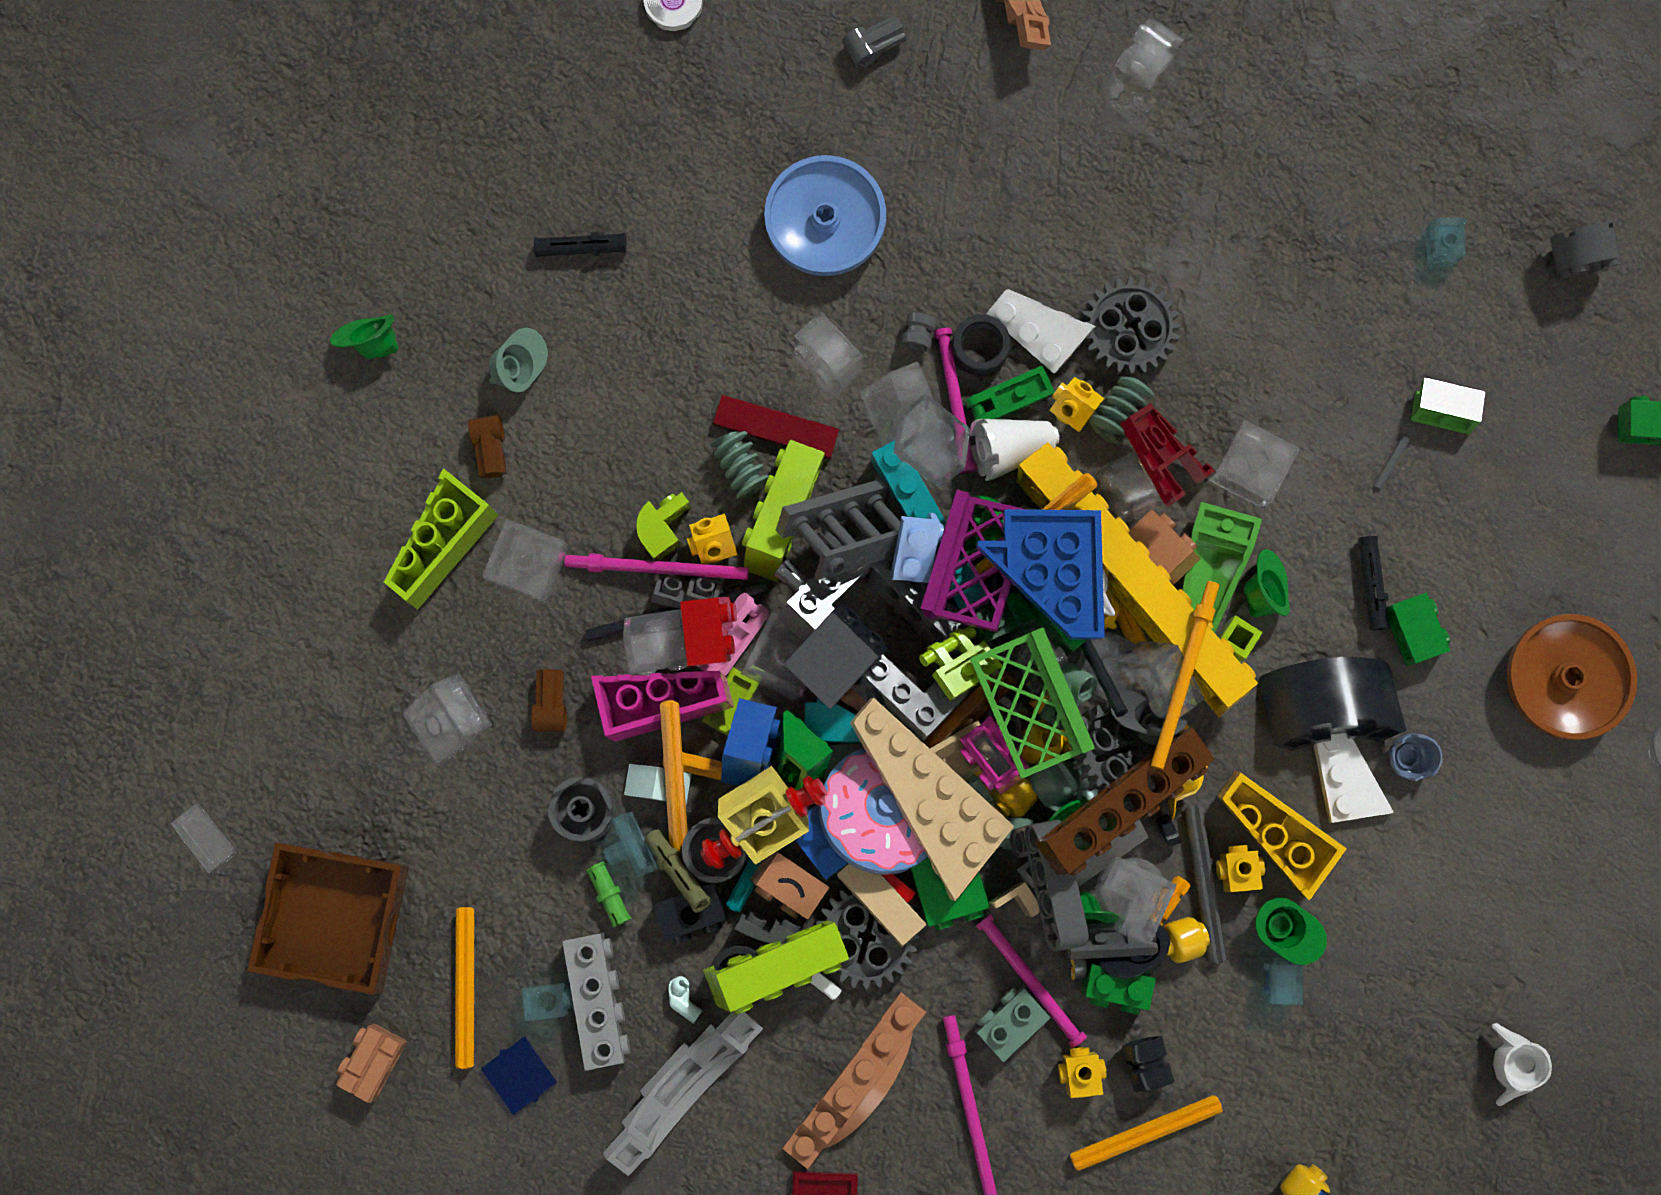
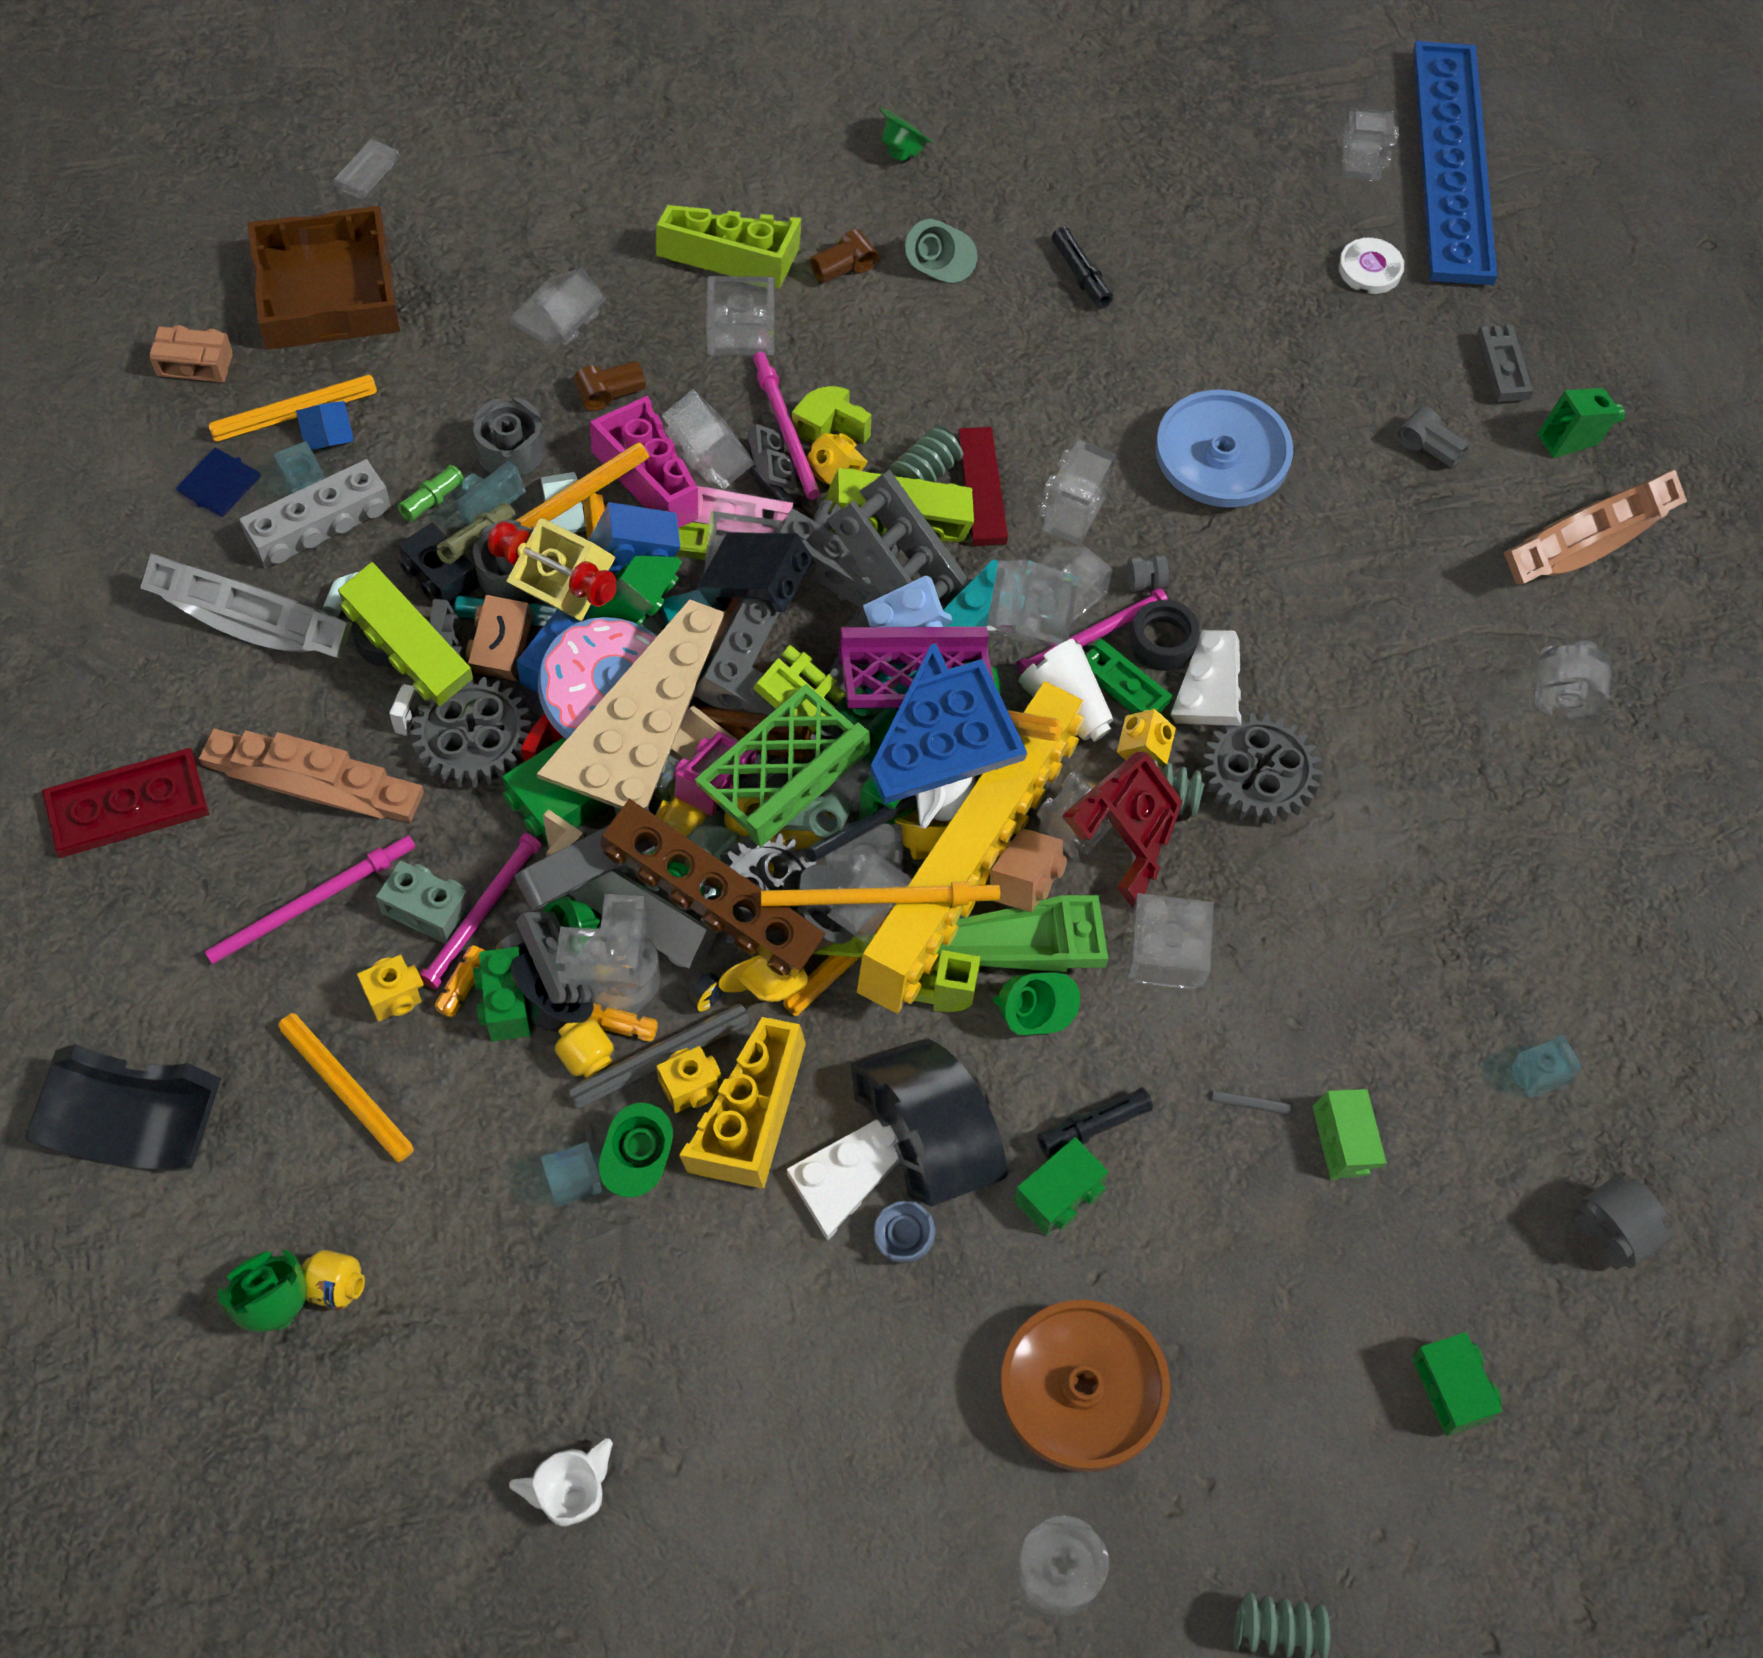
camera: 65 degrees right, 20 degrees down
(499, 965) = (325, 425): none -> blue panel
(707, 628) = (735, 453): red brick -> none
(883, 903) = (509, 726): tan tile -> none
(1088, 1015) = (459, 983): none -> light orange axle
(1148, 1064) = (429, 1051): black wheel -> none

